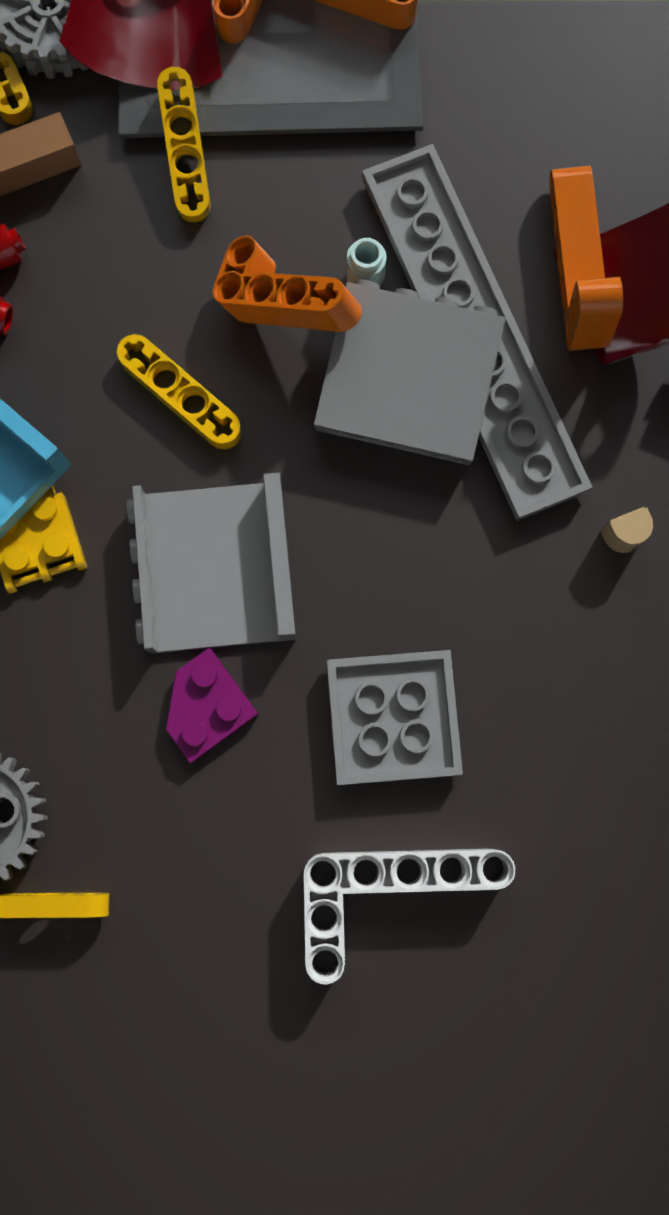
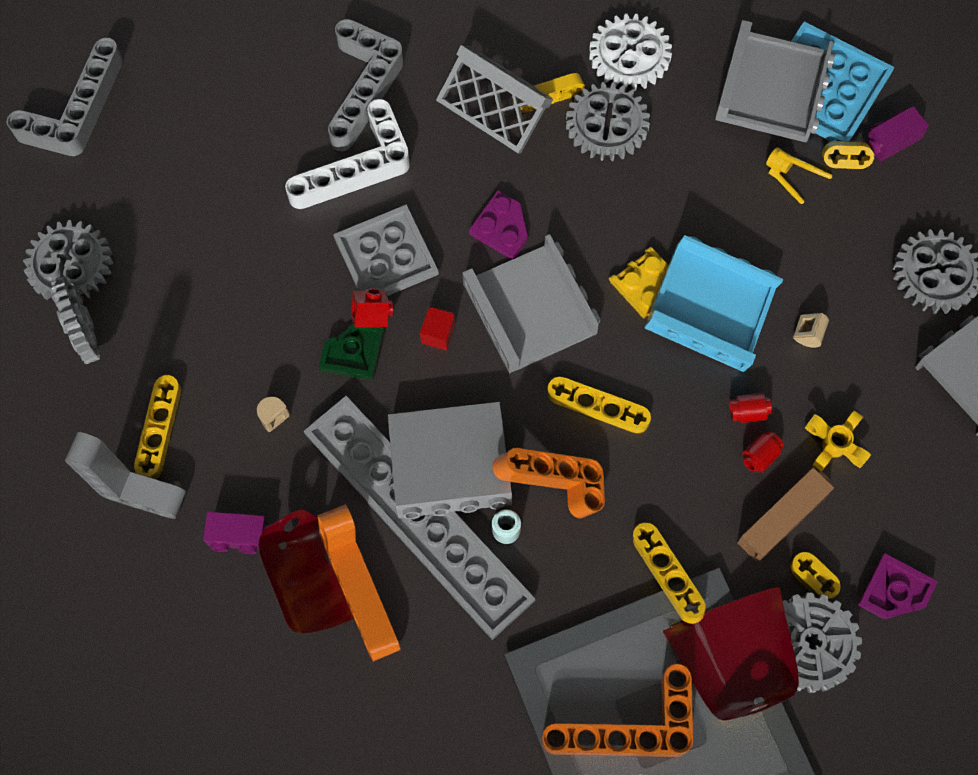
camera: 165 degrees right, 10 degrees down
(106, 941) = (508, 81): none -> light grey fence
(324, 1031) = (368, 82): none -> light grey beam
(358, 571) = (437, 328): none -> red piece
(445, 629) = (371, 308): none -> red brick
(488, 582) = (353, 352): none -> dark green plate

